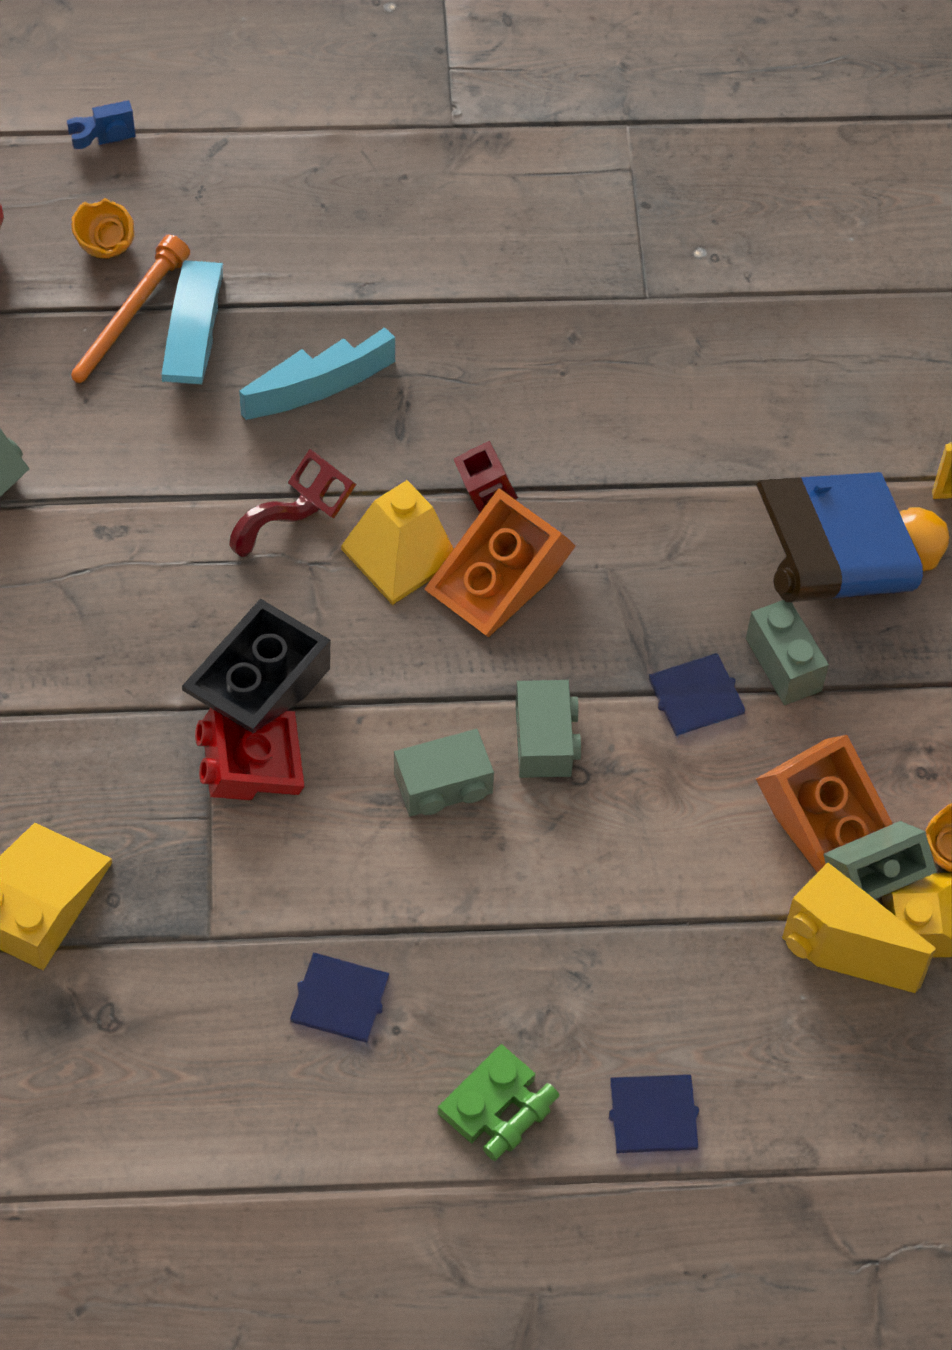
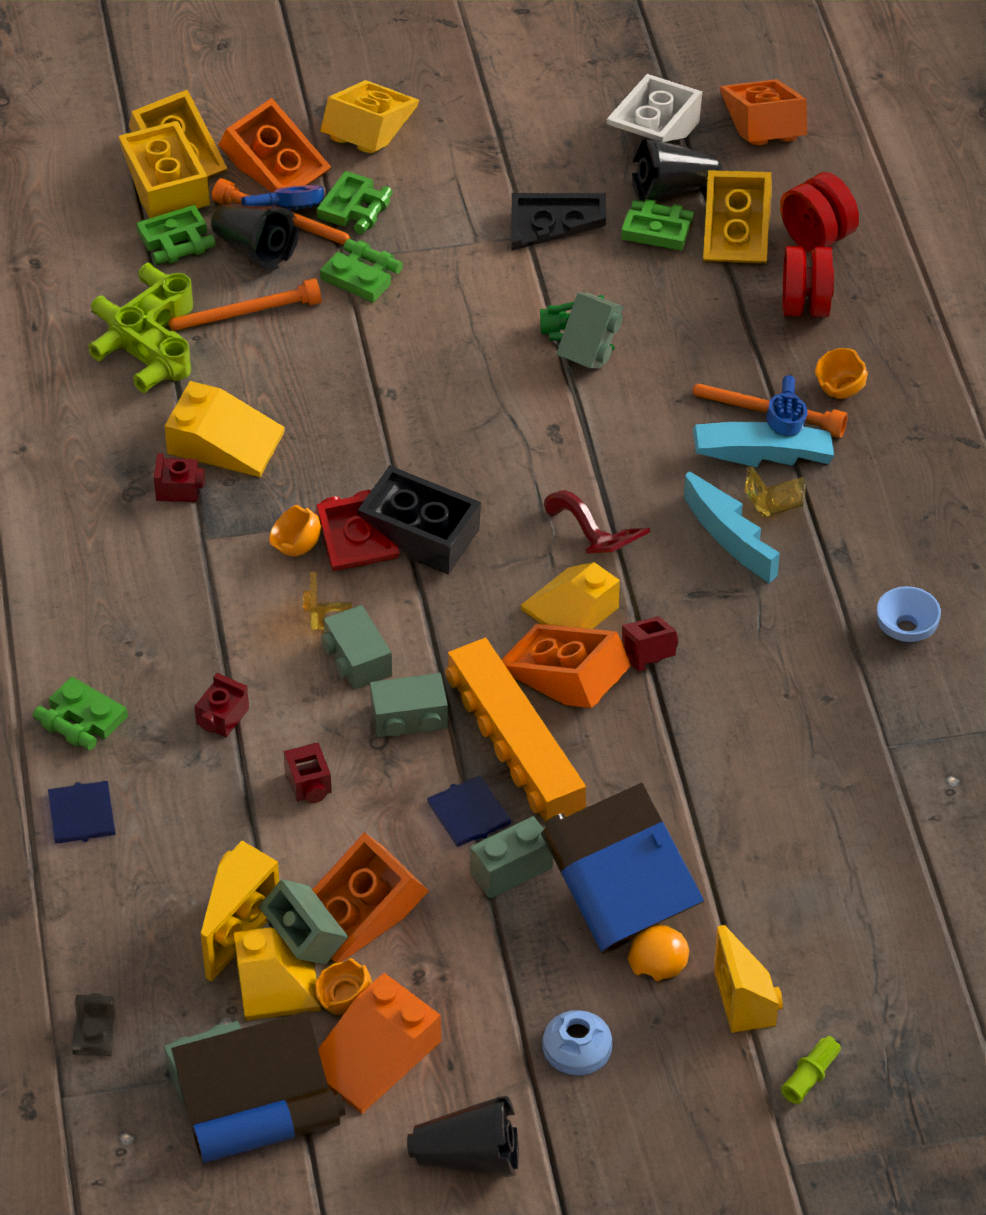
camera: 85 degrees right, 10 degrees down
(108, 124) = (960, 363): blue plate -> none
(115, 964) = (177, 479): none -> dark red brick
(155, 285) = (786, 411): none -> blue piece
(243, 818) = (295, 531): none -> light orange hair
(278, 320) = (776, 497): none -> clear yellow bracket
(339, 997) = (161, 616): clear blue piece -> none
(363, 813) = (319, 610): none -> clear yellow bracket
(488, 226) = (908, 605): none -> light blue piece
(514, 946) = (222, 705): none -> dark red brick
(595, 625) = (515, 730): none -> light orange brick
(639, 845) = (309, 780): none -> dark red brick

